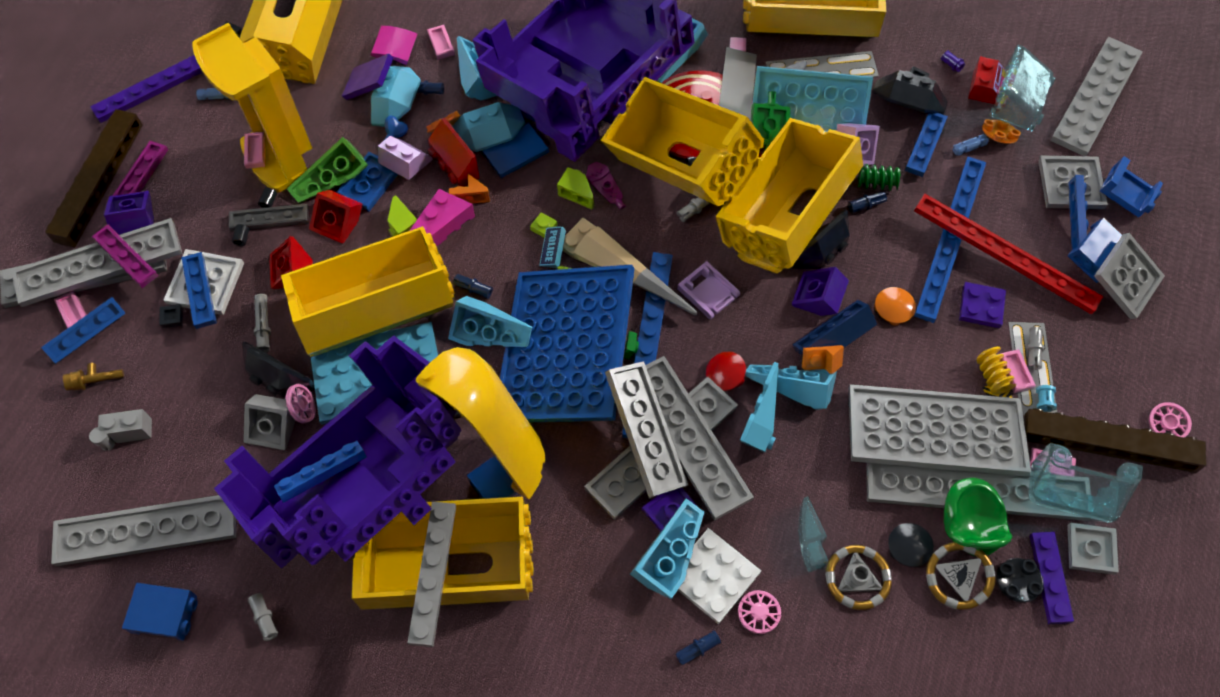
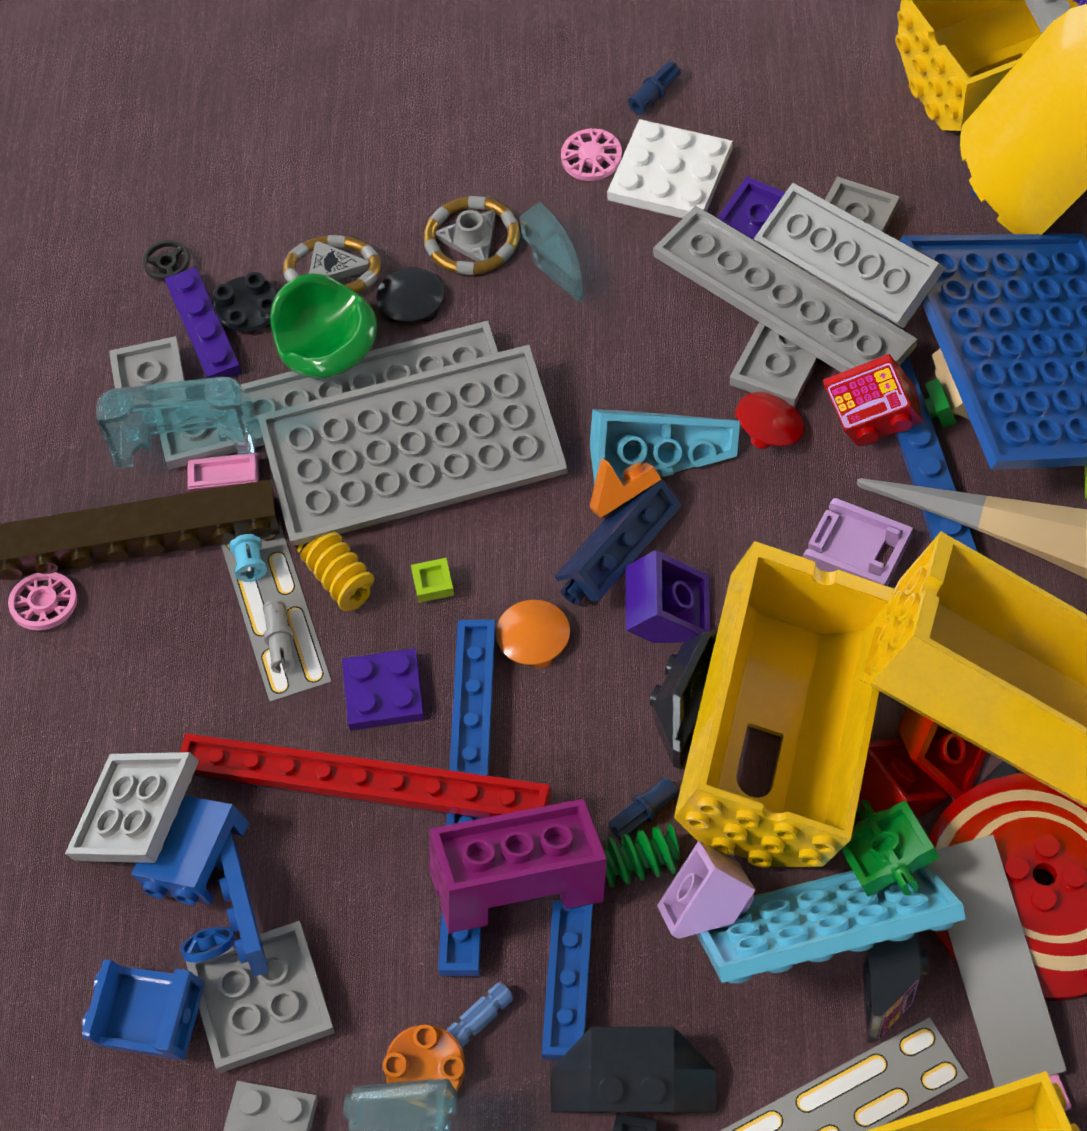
camera: 165 degrees right, 5 degrees down
(660, 343) = (874, 400): none -> red slope
(668, 557) = (740, 150): medium azure wedge -> none
(761, 423) = (681, 352): medium azure wedge -> none
(943, 175) = (515, 861): none -> magenta piece
(943, 350) = (432, 580): none -> lime plate
(1018, 370) = (303, 594): bright pink tile -> none
(1075, 640) = (168, 270): none -> pearl dark grey piece
(1101, 208) = (206, 940): none -> blue piece

